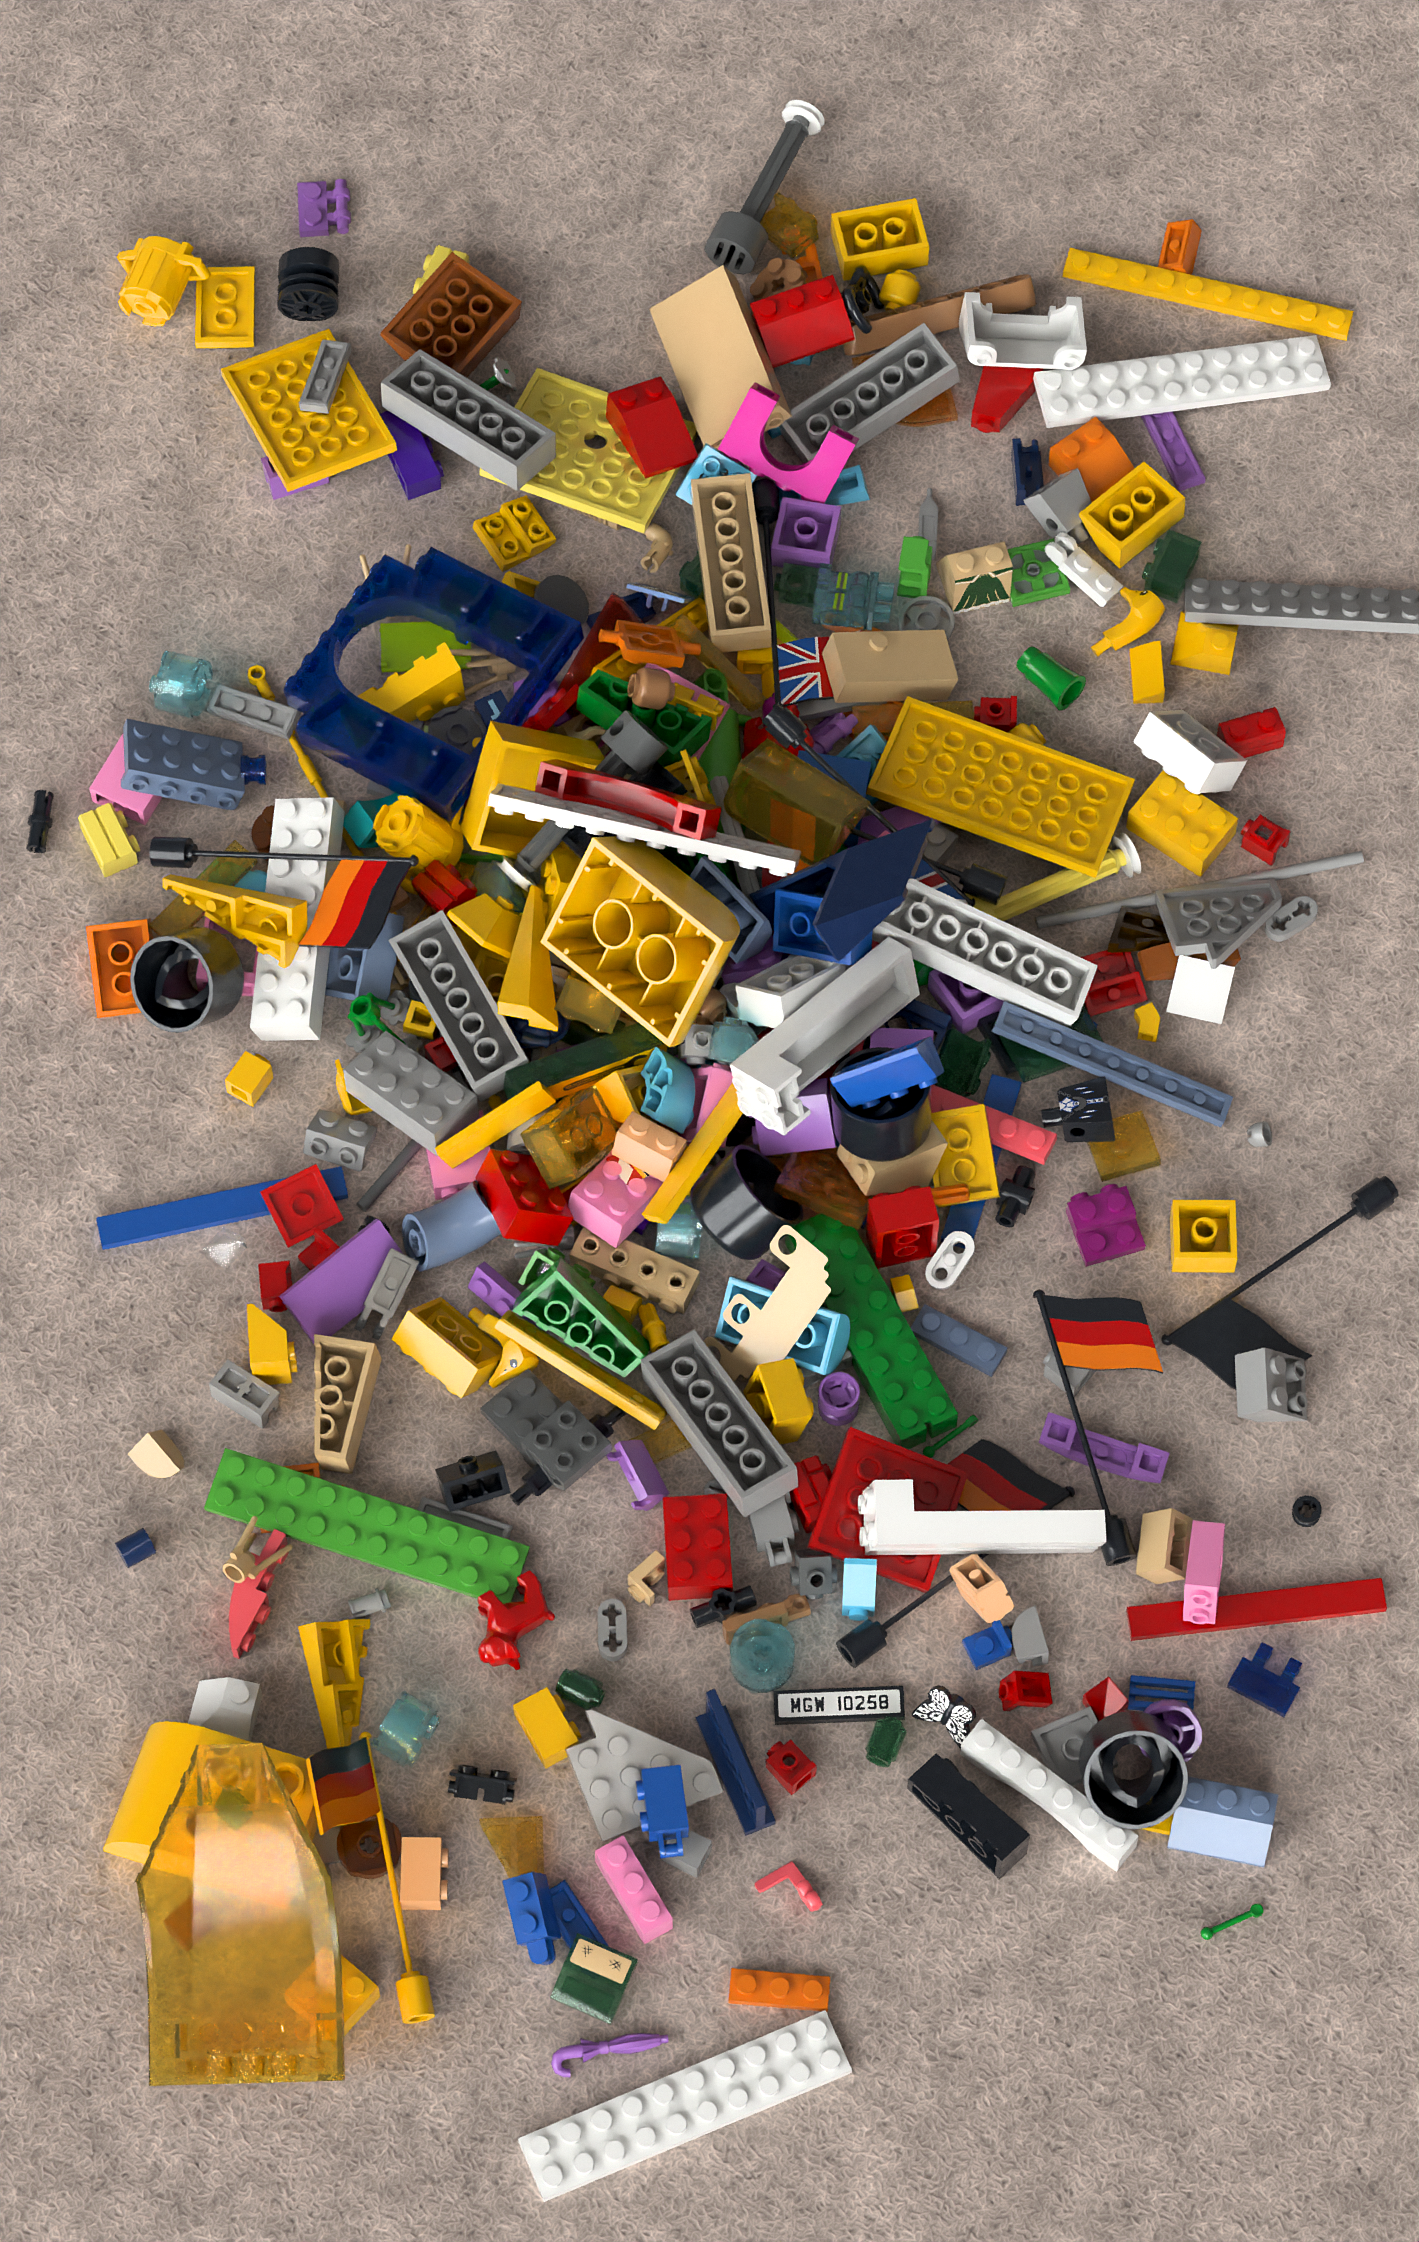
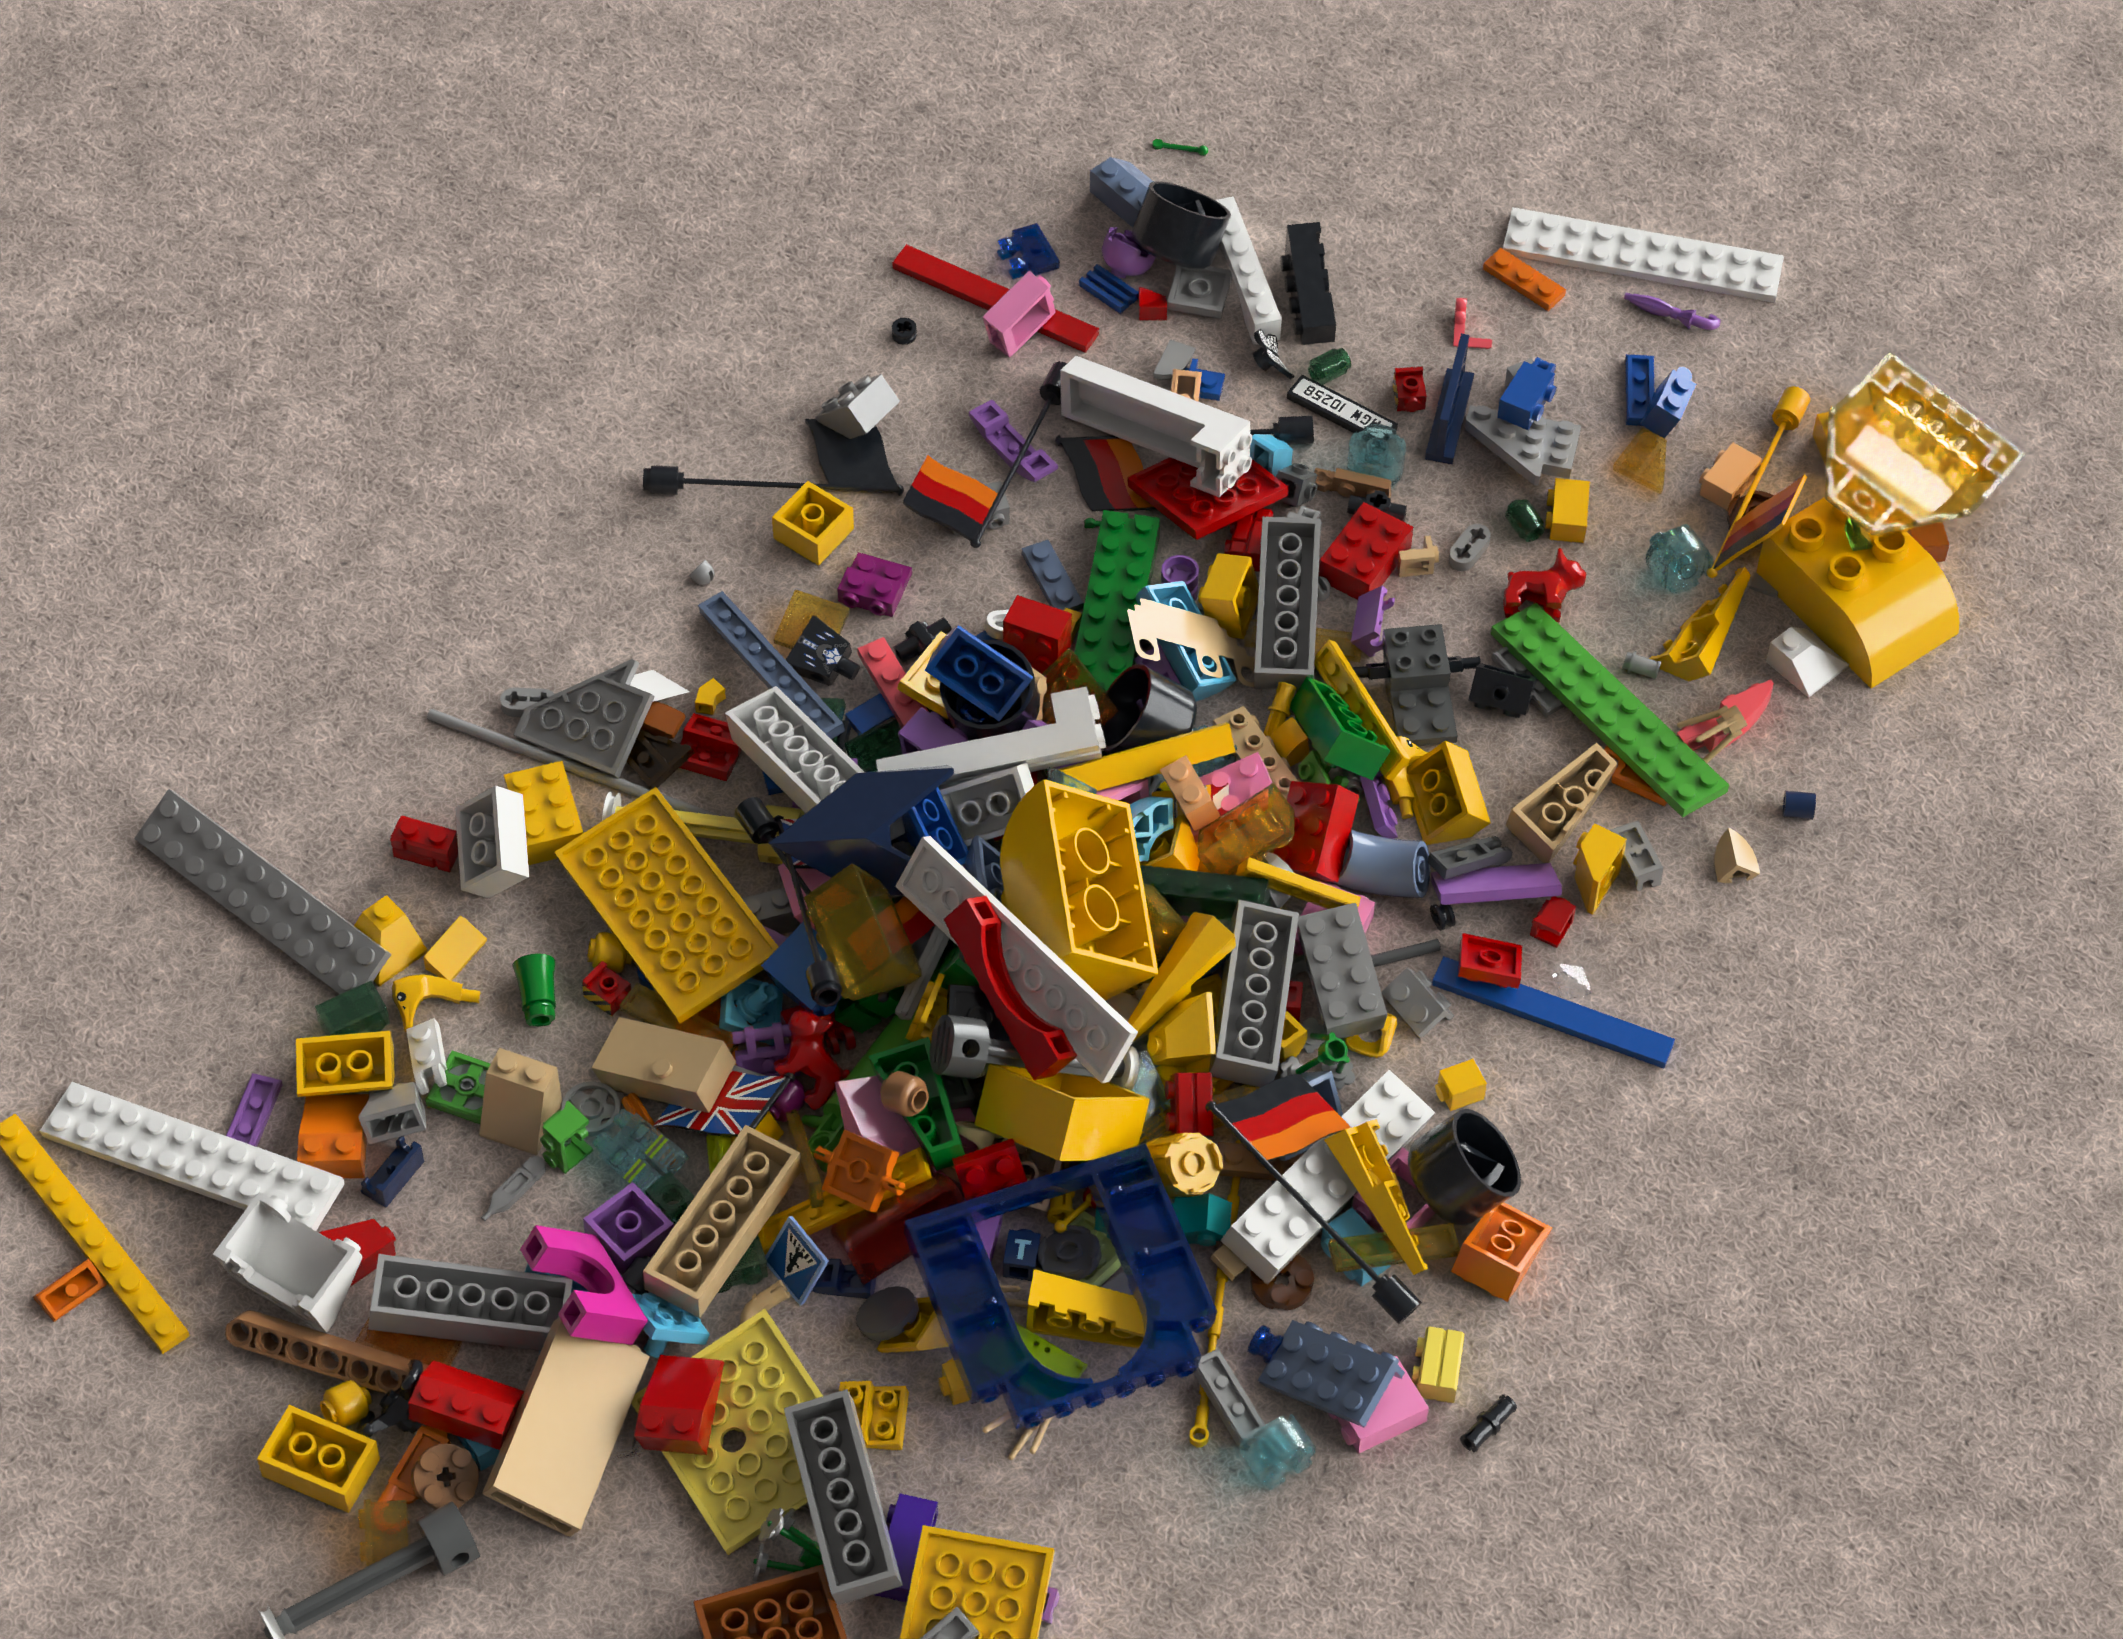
camera: 145 degrees left, 10 degrees down
(317, 1250) = (1498, 920): red panel -> none
(469, 1781) = (1641, 509): black hinge -> none
(594, 1978) = (1649, 352): clear green slope -> none
(633, 1889) = (1583, 380): bright pink brick -> none
(703, 705) = (867, 1082): yellow hinge -> none
(1025, 1689) = (1204, 338): red bracket -> none
(1164, 1546) = (1028, 357): tan brick -> none
(1264, 838) = (491, 763): red window -> none

